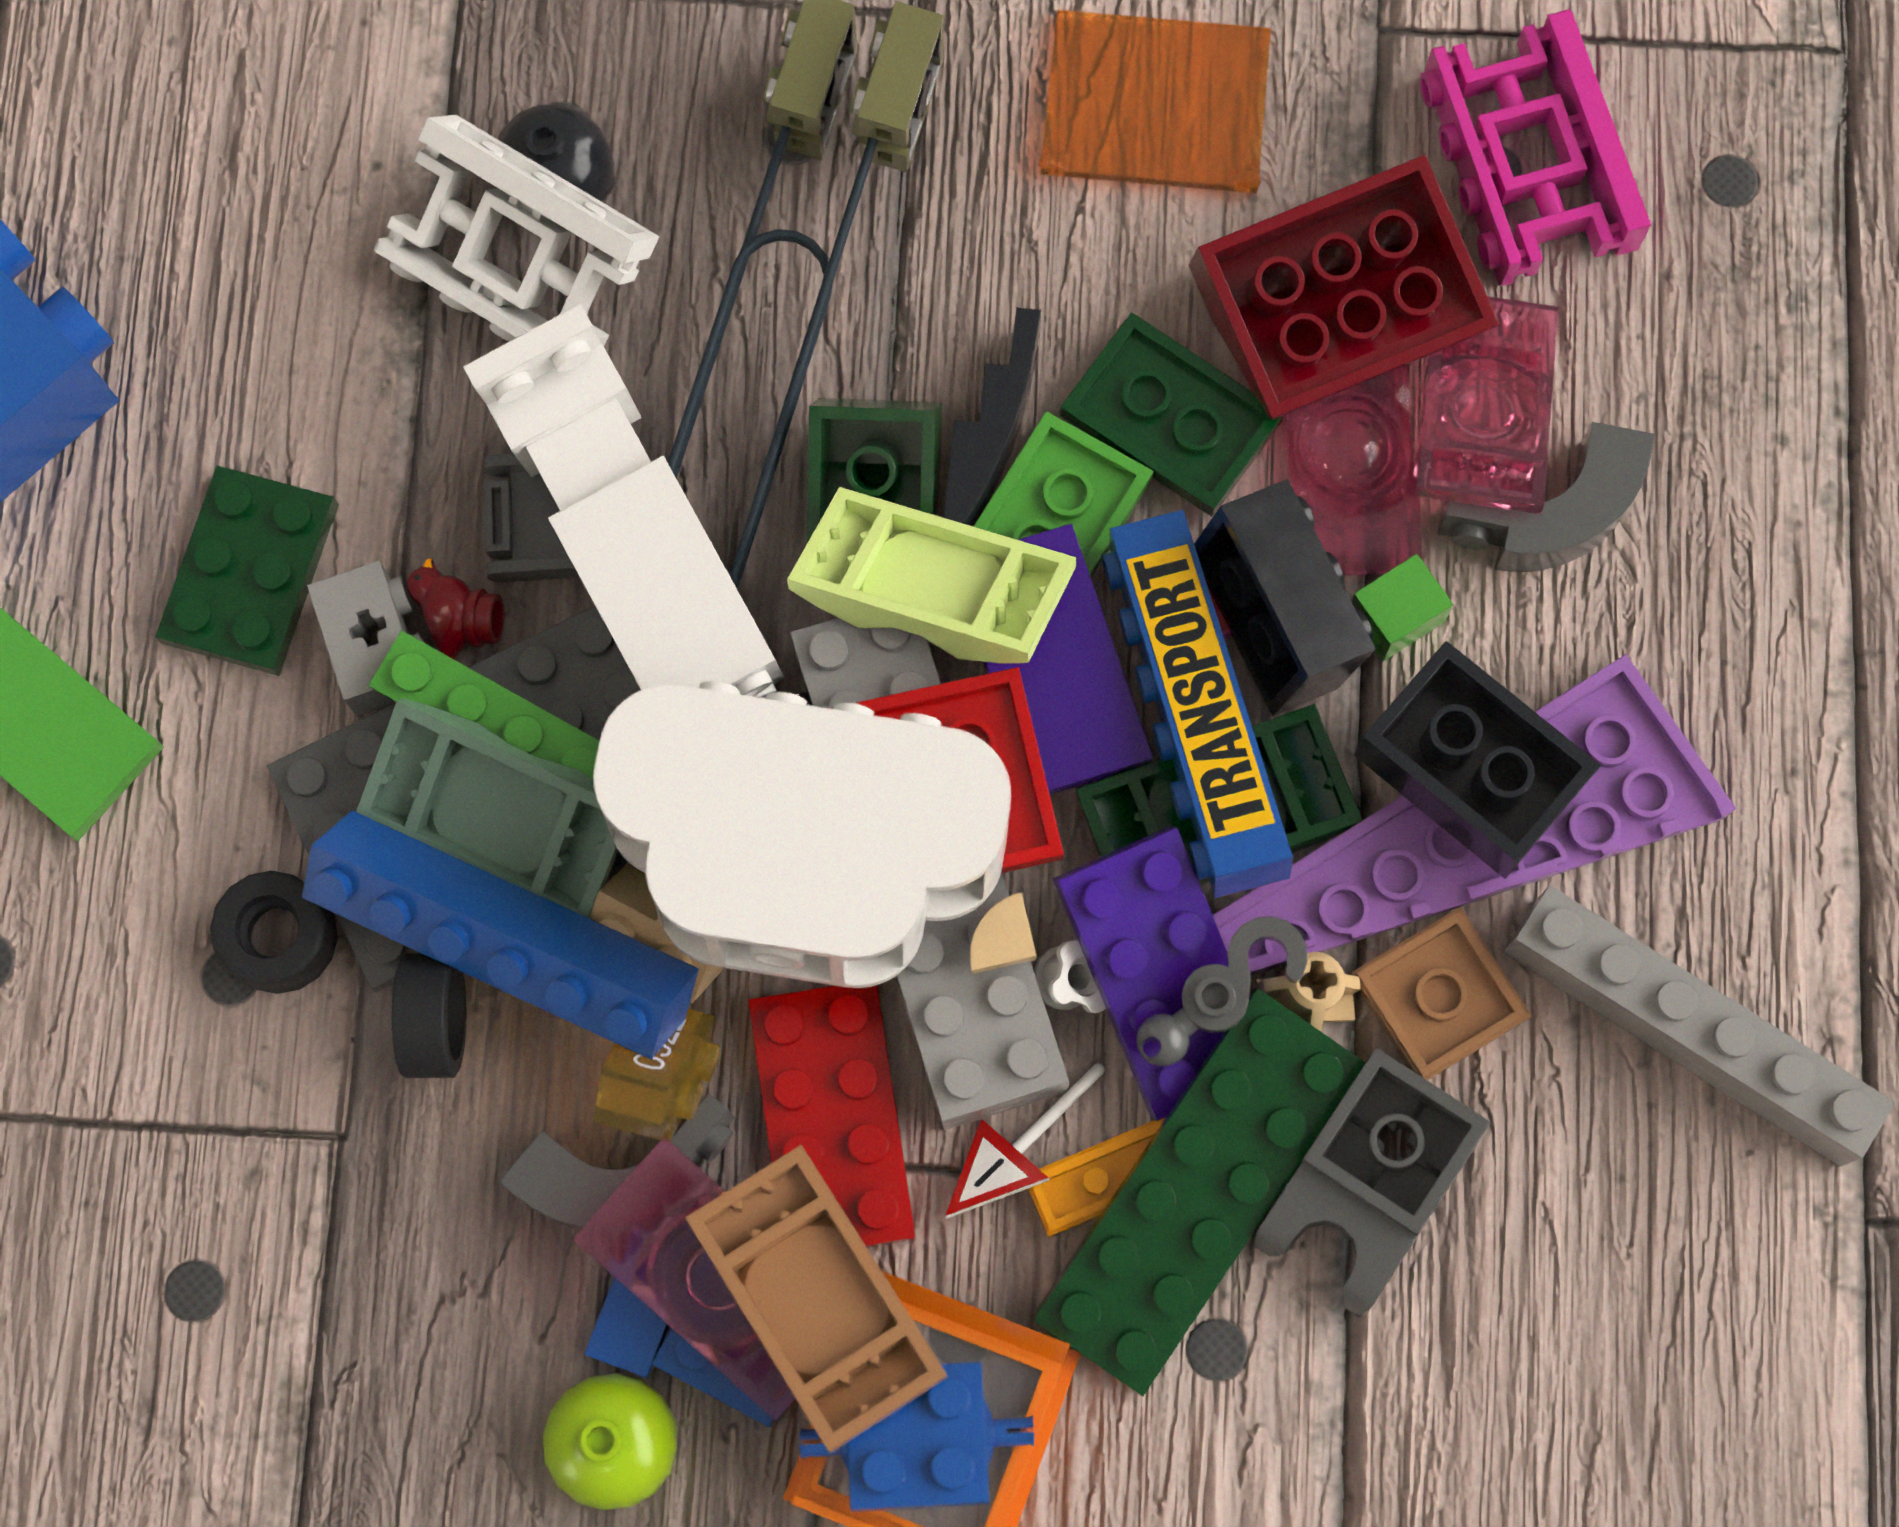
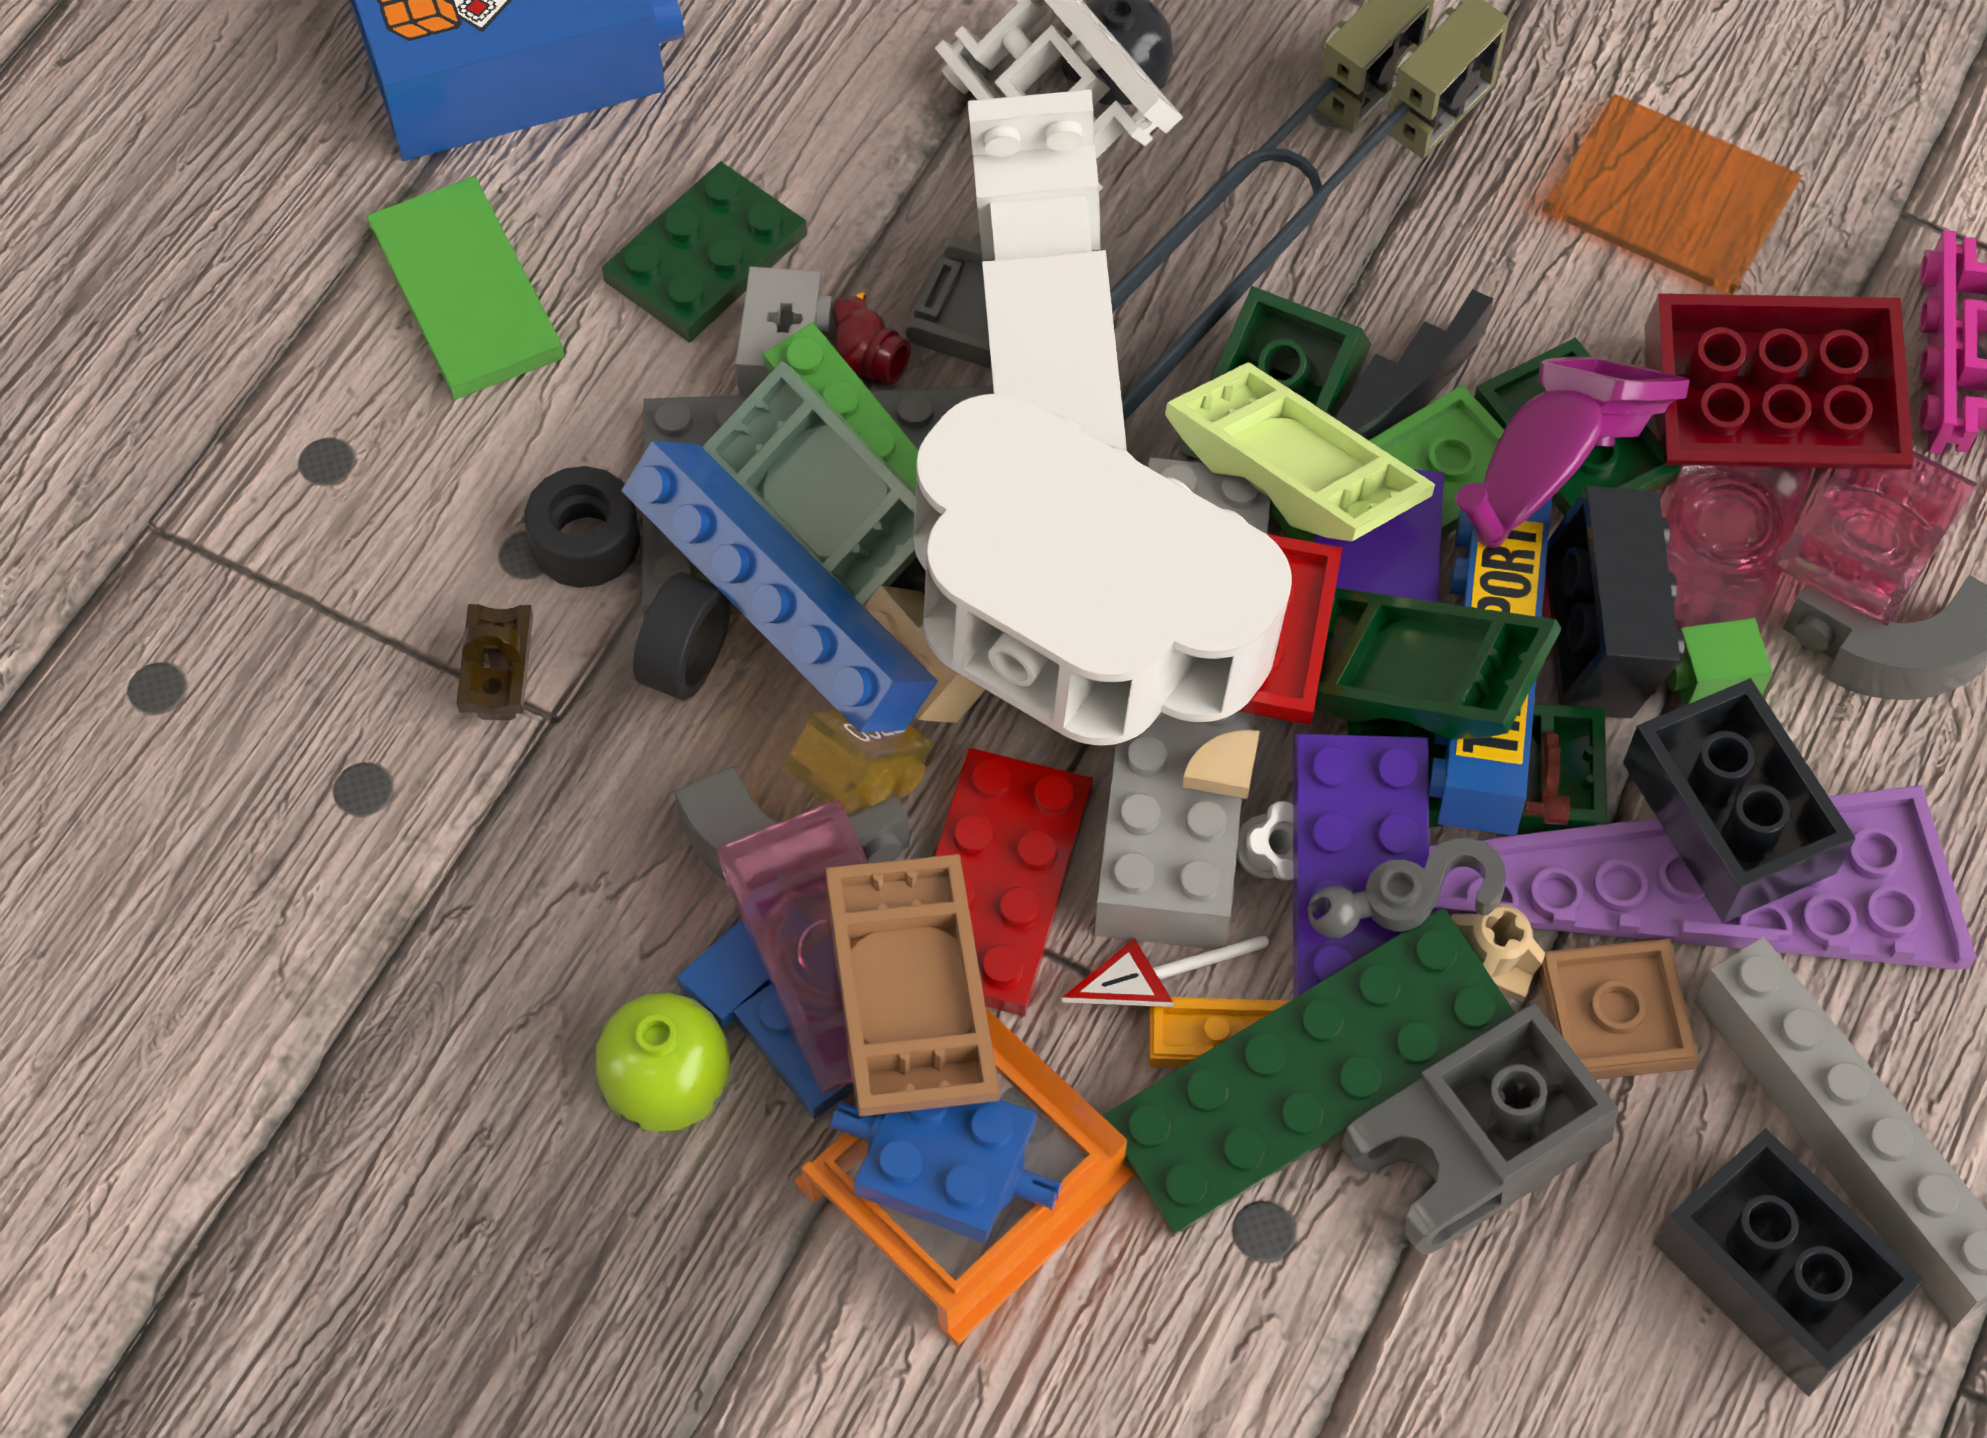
camera: 20 degrees right, 15 degrees down
(252, 1088) = (503, 643): none -> dark brown hips
(1151, 754) = (1430, 663): none -> dark green slope
(1184, 390) = (1554, 432): none -> magenta piece
(1311, 832) = (1553, 808): none -> clear red piece
(1686, 1186) = (1787, 1261): none -> black brick

